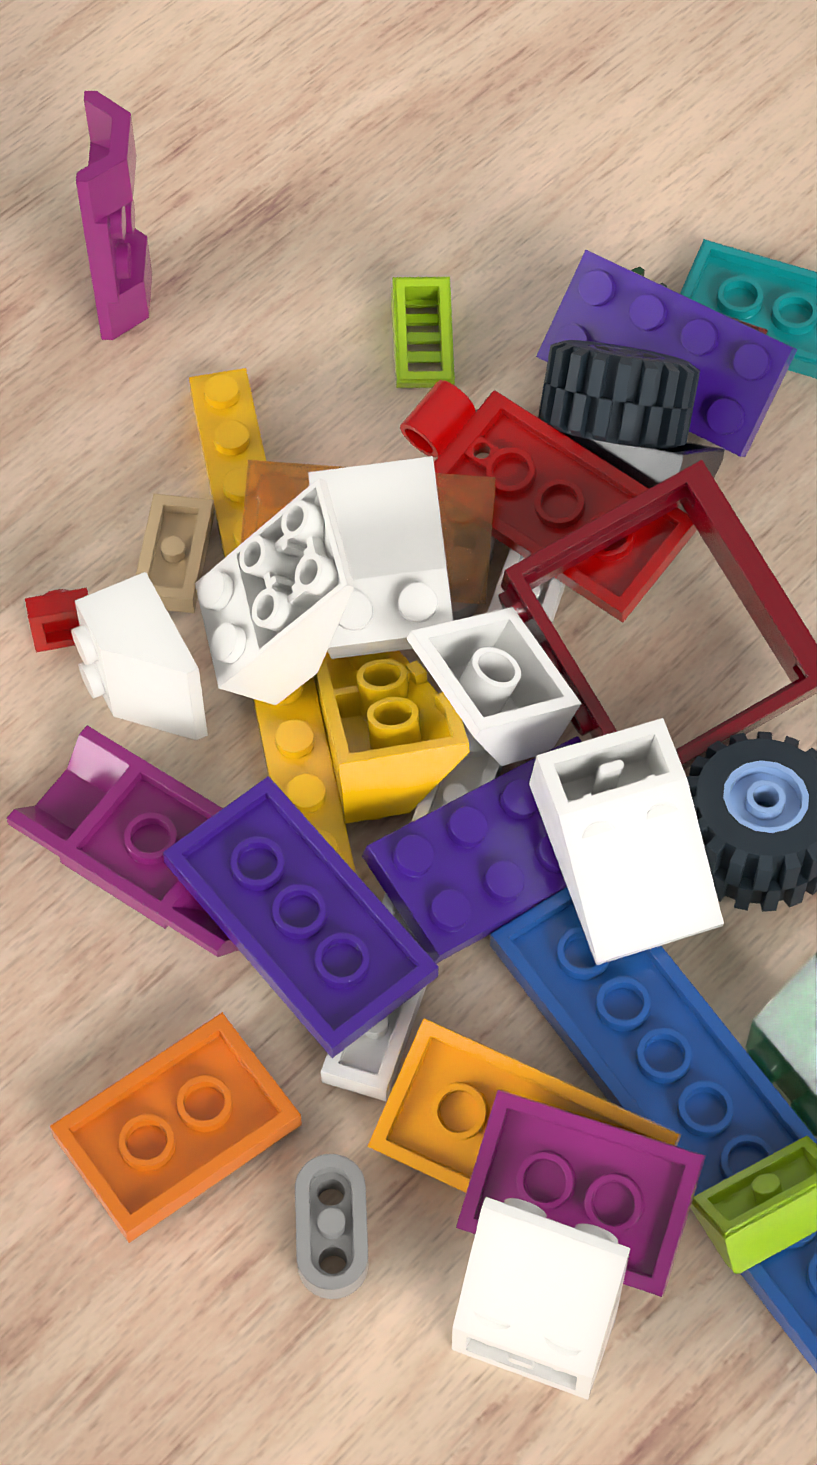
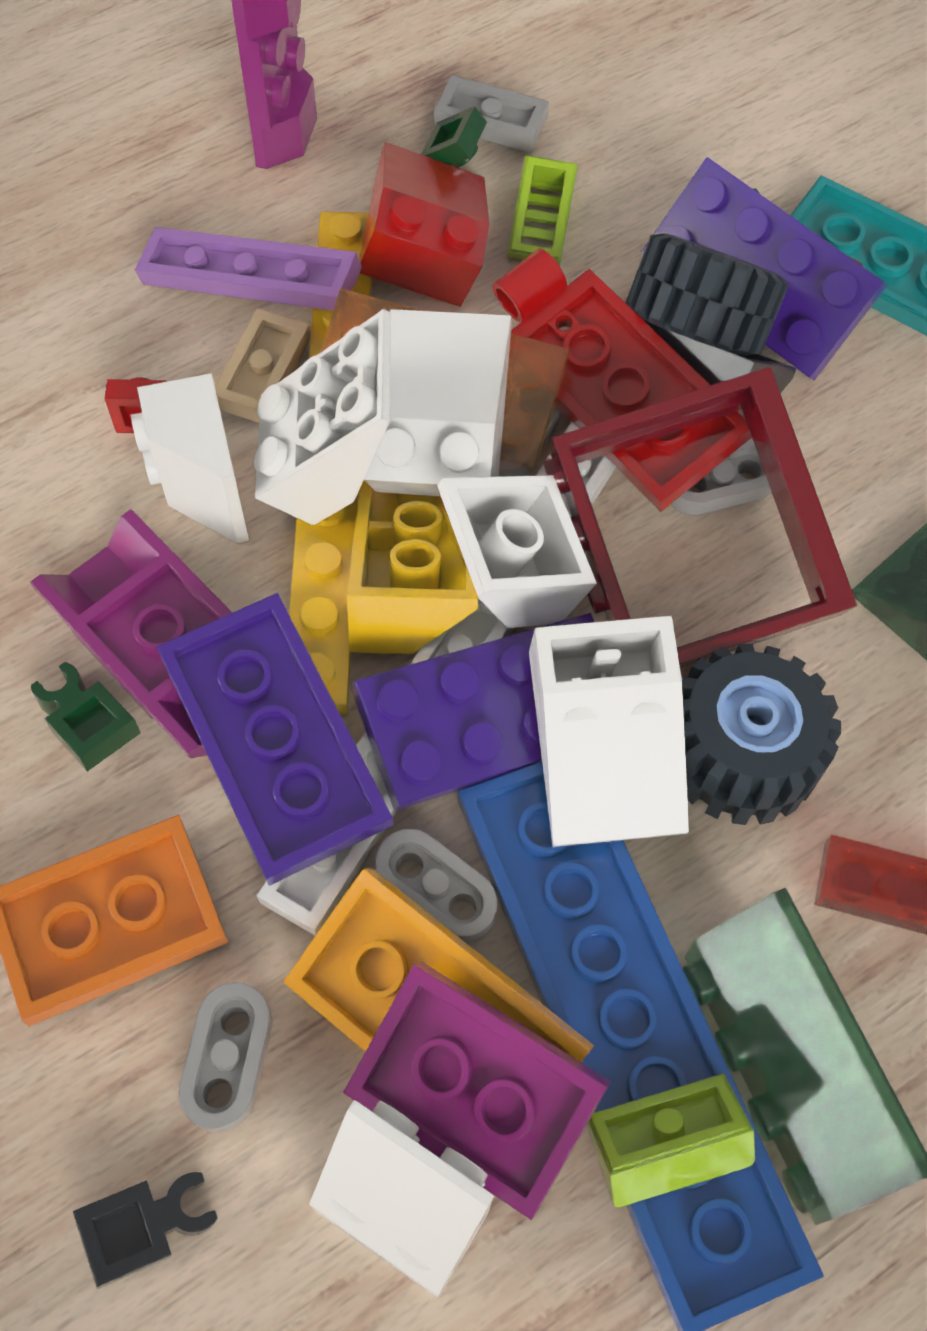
camera: 10 degrees right, 5 degrees up
(100, 945) = (84, 719): none -> dark green plate
(133, 454) = (247, 268): none -> medium lavender plate
(288, 1397) = (130, 1228): none -> black plate
(307, 372) = (425, 226): none -> red slope
(310, 274) = (456, 138): none -> dark green plate
(341, 236) = (510, 116): none -> light grey plate
(495, 1019) = (440, 883): none -> light grey plate
(680, 584) = (725, 485): none -> light grey plate

